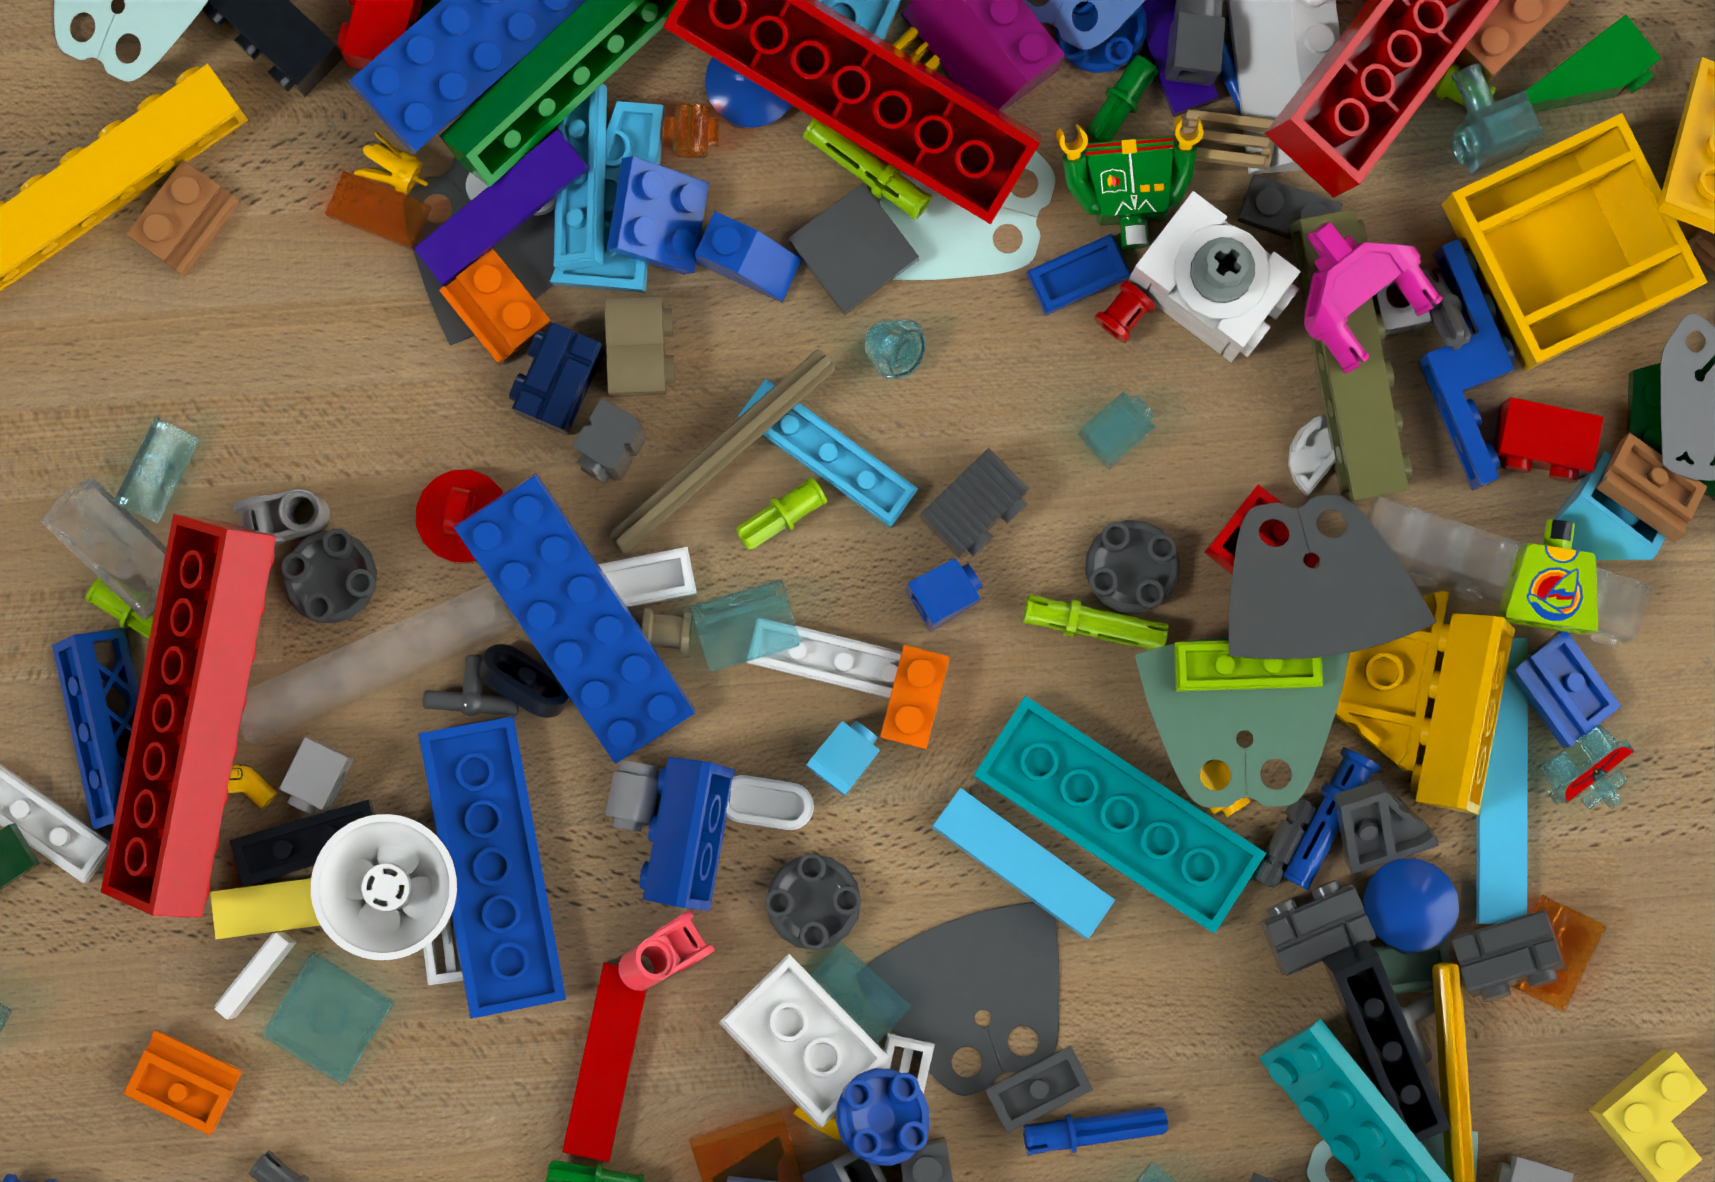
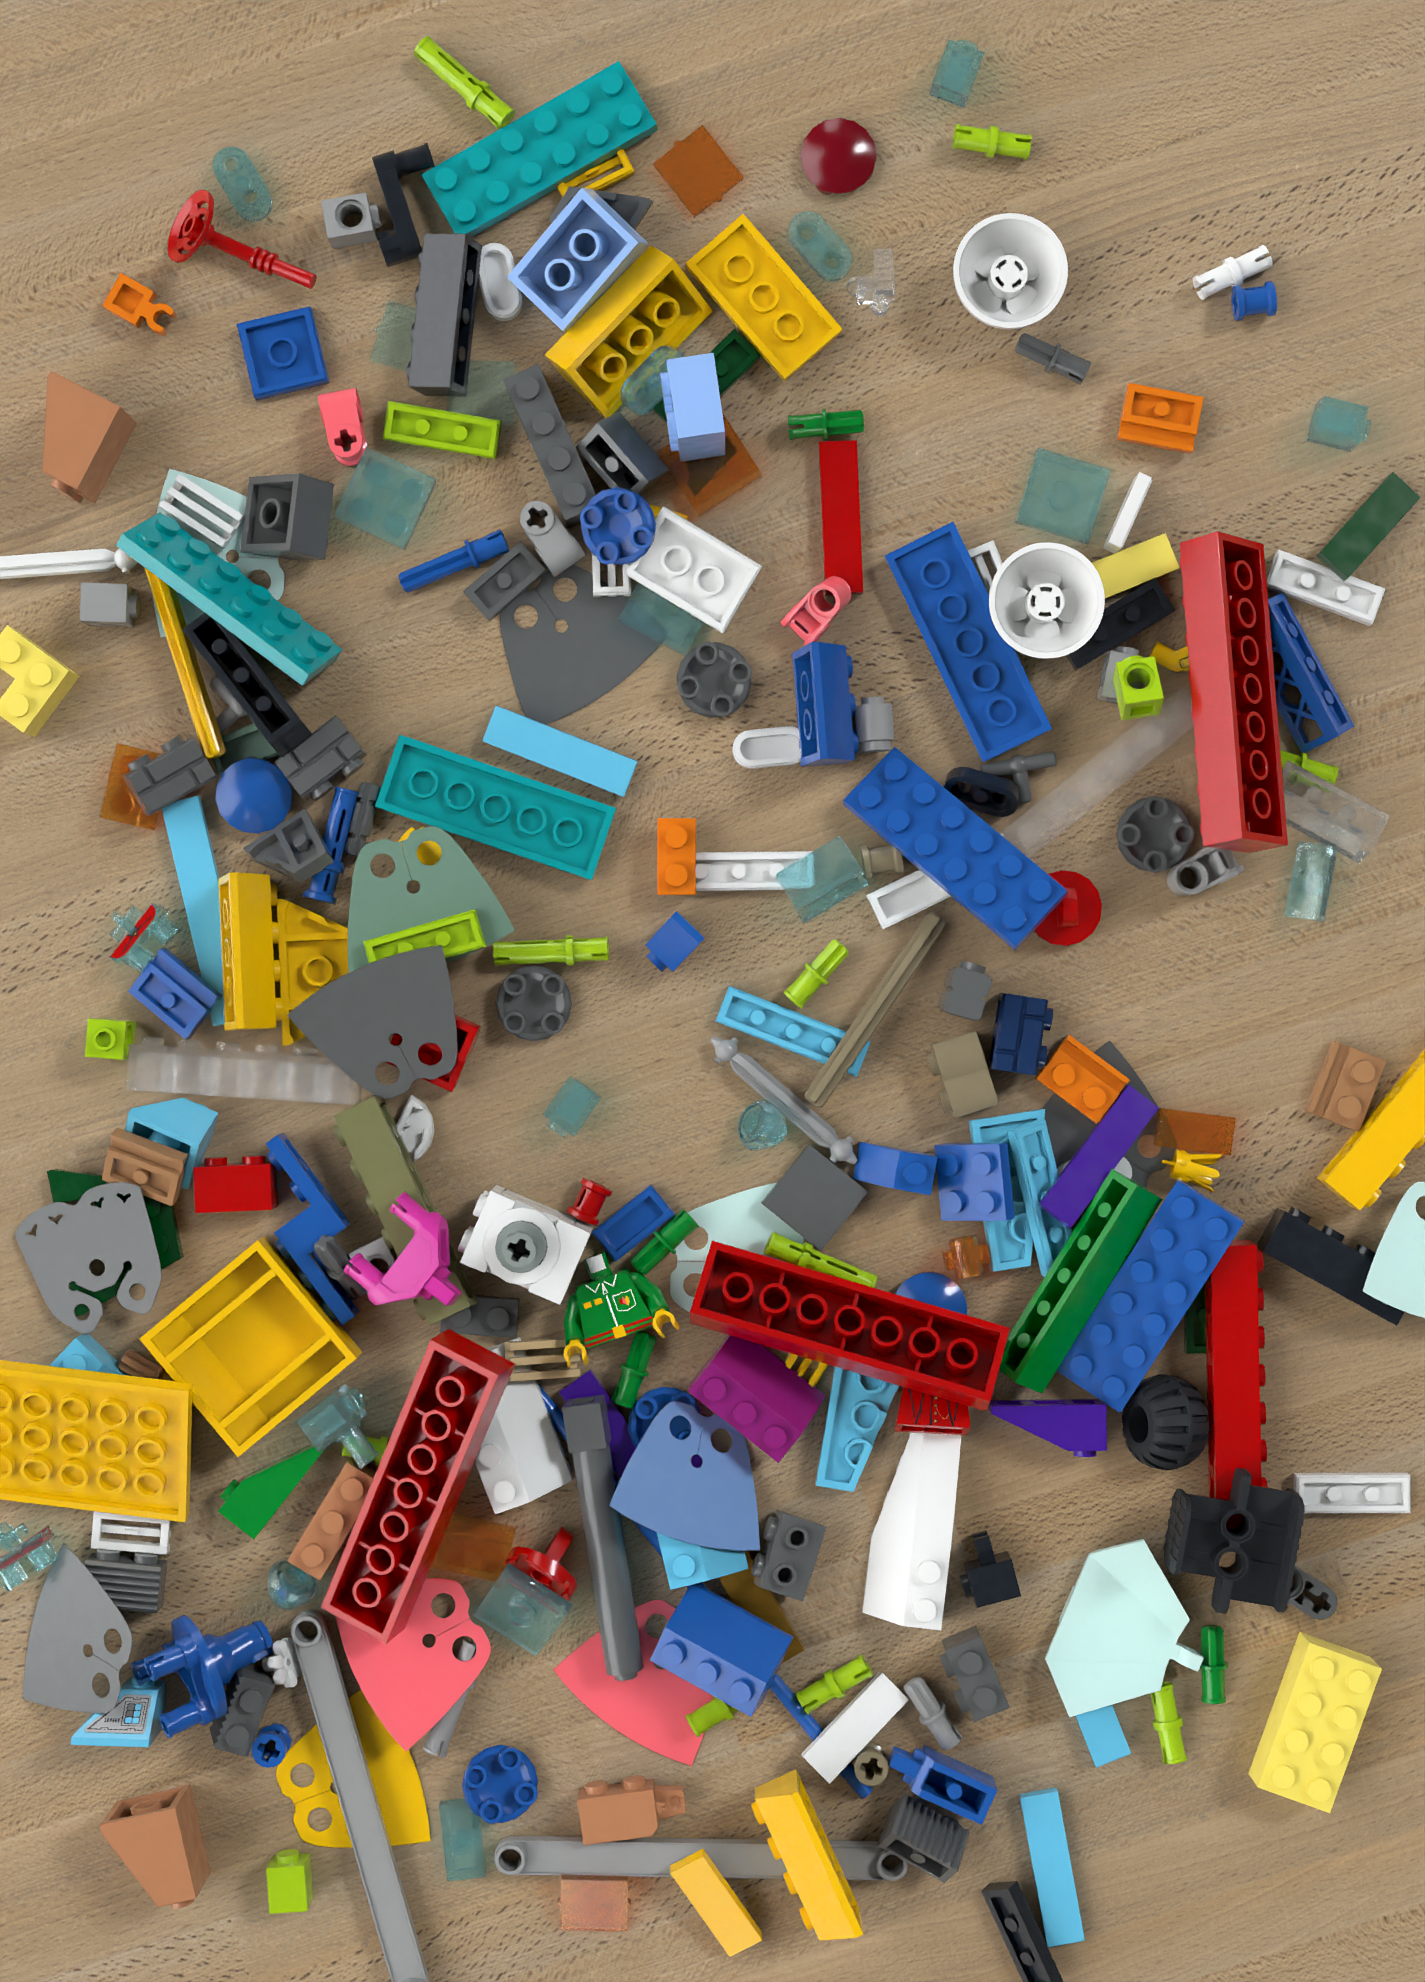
camera: 165 degrees right, 5 degrees up
(309, 734) = (1138, 702): none -> lime brick
(844, 756) = (718, 795): medium azure slope -> none
(860, 373) = (783, 1100): none -> light grey wheel
(968, 1120) = (553, 542): none -> light grey piece
(975, 504) = (667, 1020): dark grey brick -> none
(1046, 241) = (665, 1242): none -> green axle
(1552, 584) = (204, 1068): lime torso -> none
(1657, 654) = (109, 1038): none -> lime brick

